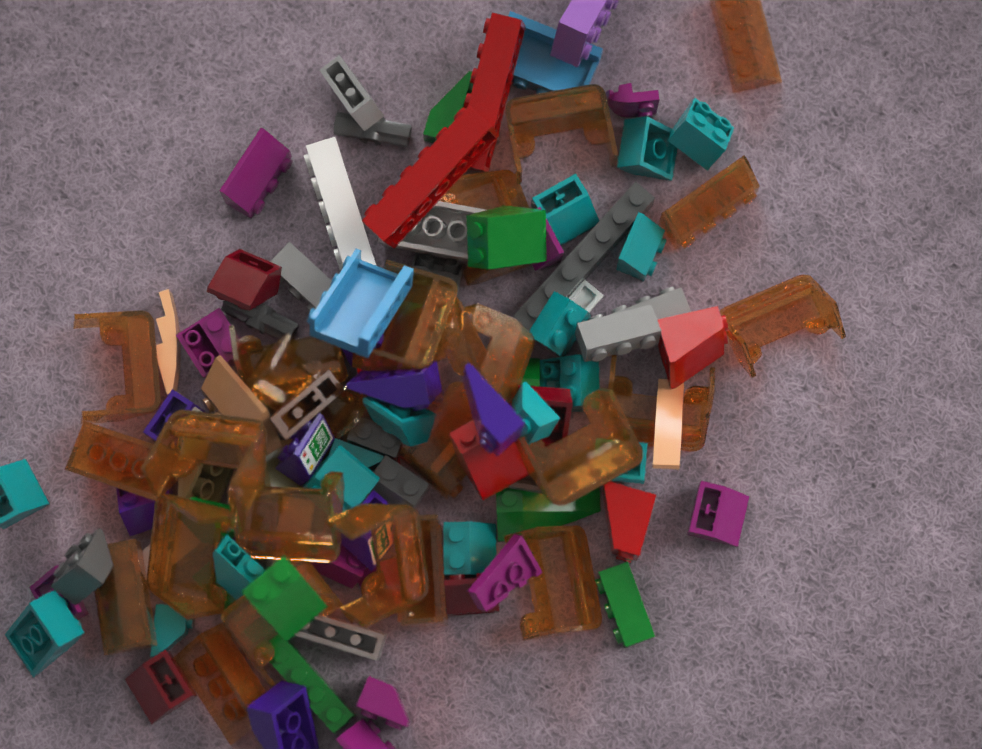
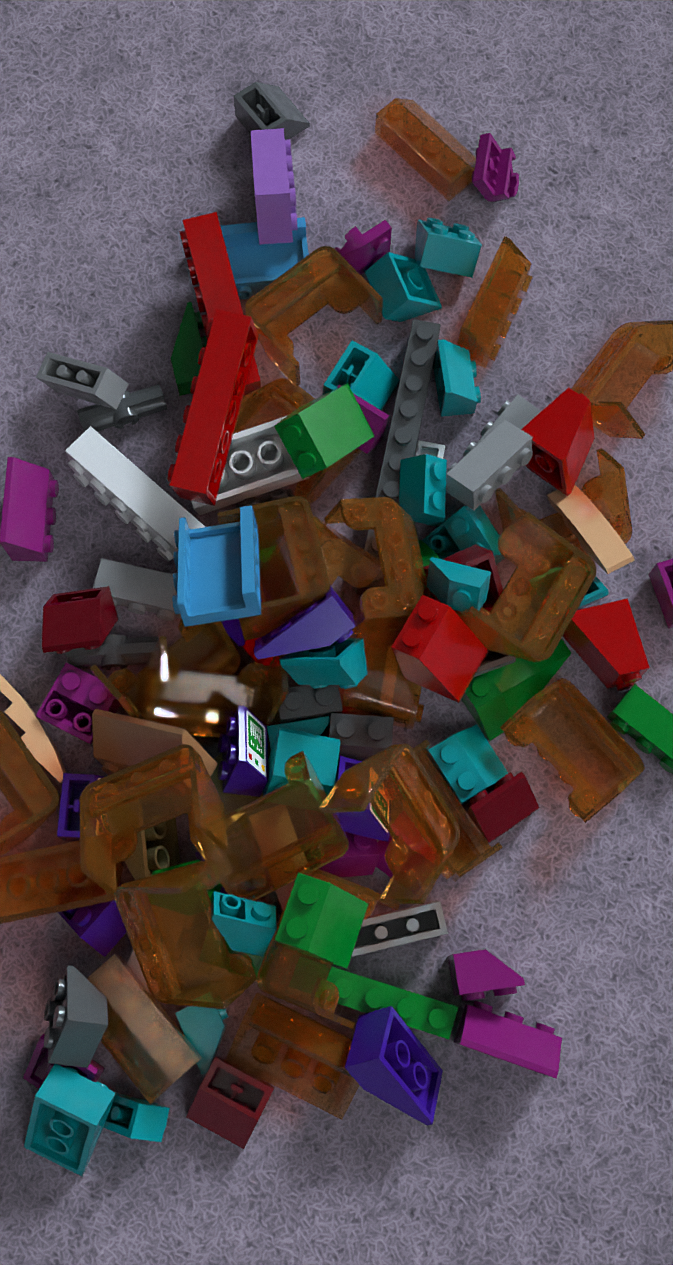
camera: 35 degrees left, 5 degrees down
(90, 659) = (137, 1118): none -> teal slope
(306, 403) = (220, 702): reddish brown slope -> none
(494, 419) = (425, 594): dark purple slope -> none
(506, 571) = (528, 763): magenta wing -> none
(781, 90) = (494, 170): none -> magenta slope

